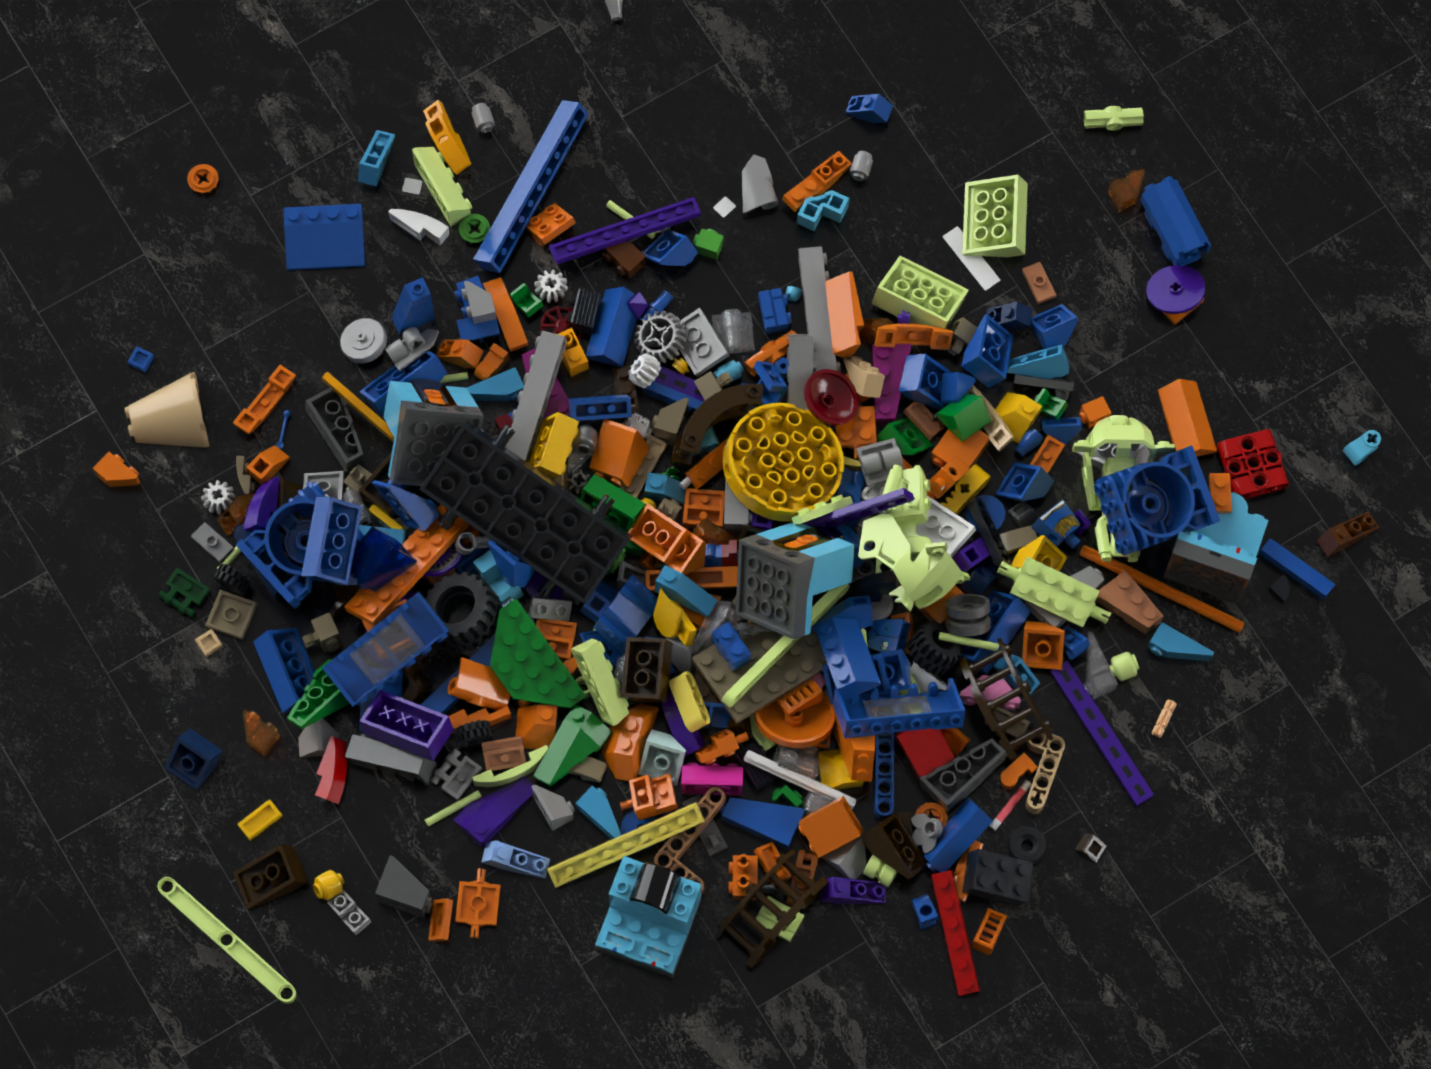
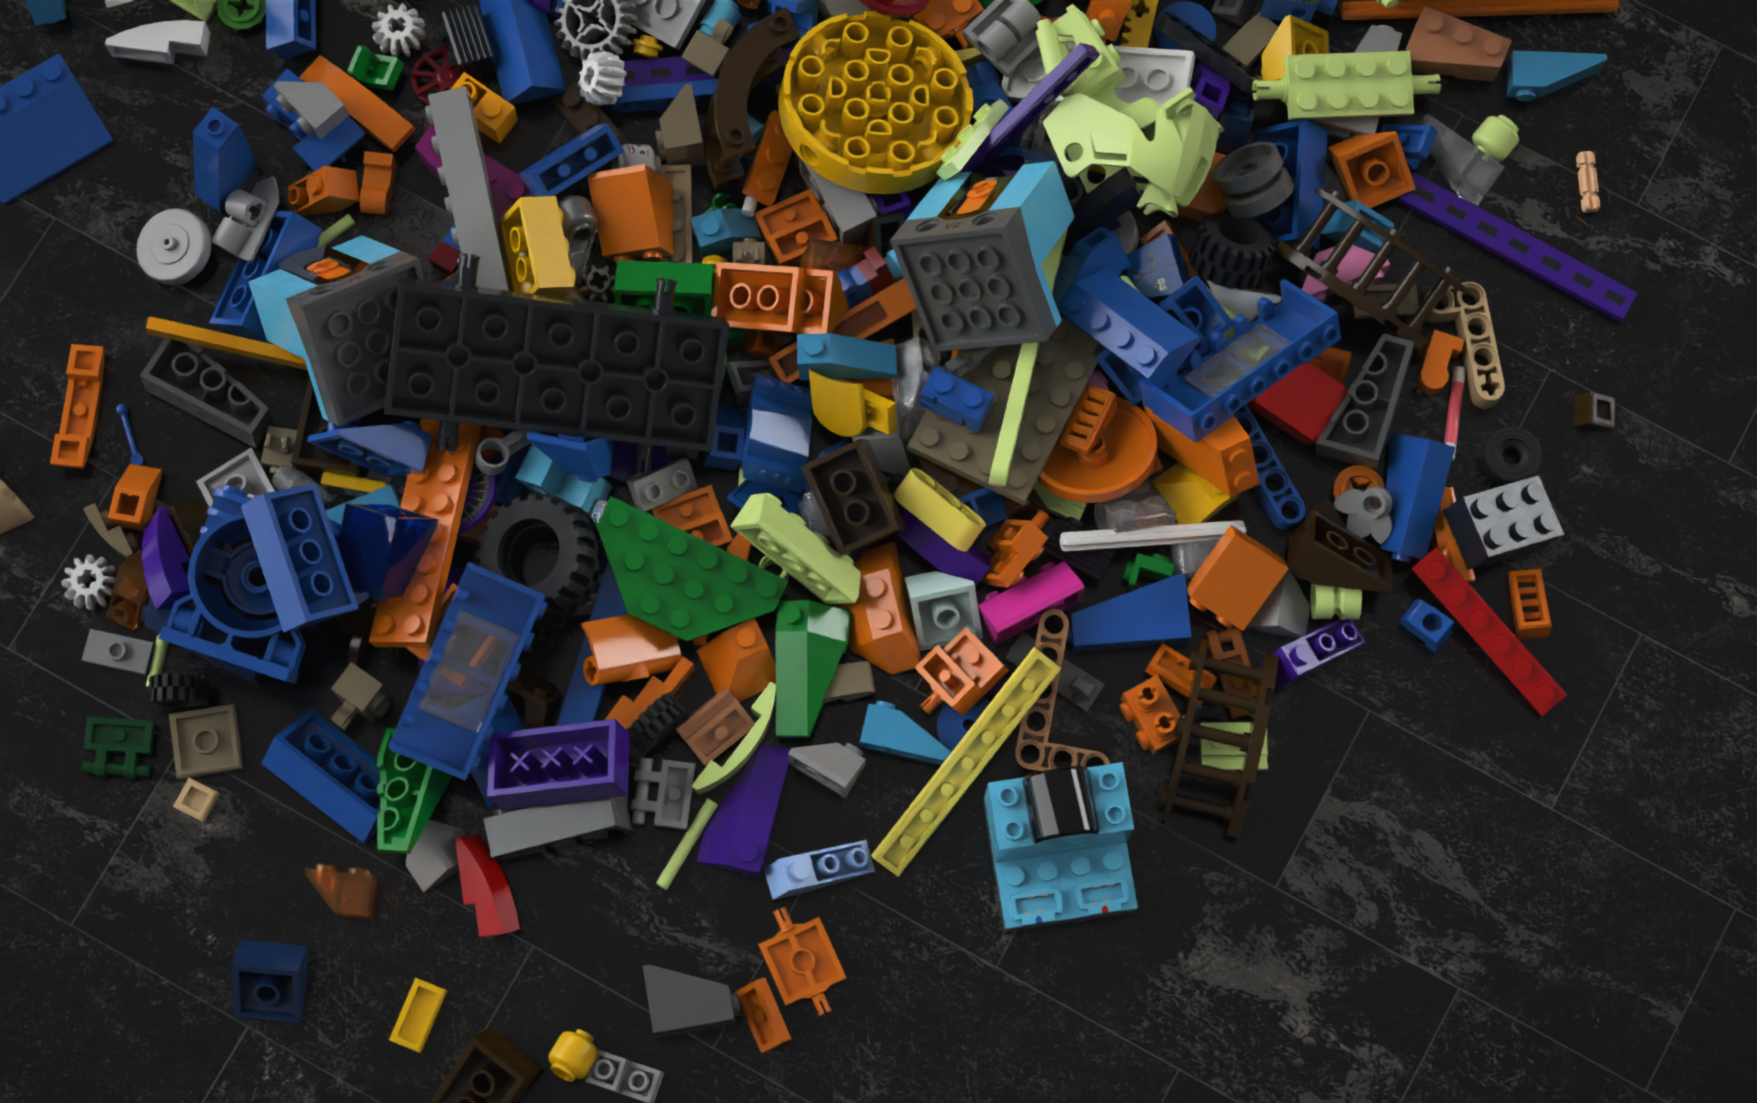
camera: 30 degrees left, 5 degrees up
(501, 387) = (409, 210): dark azure slope -> none
(968, 641) = (1275, 216): yellowish green piece -> none

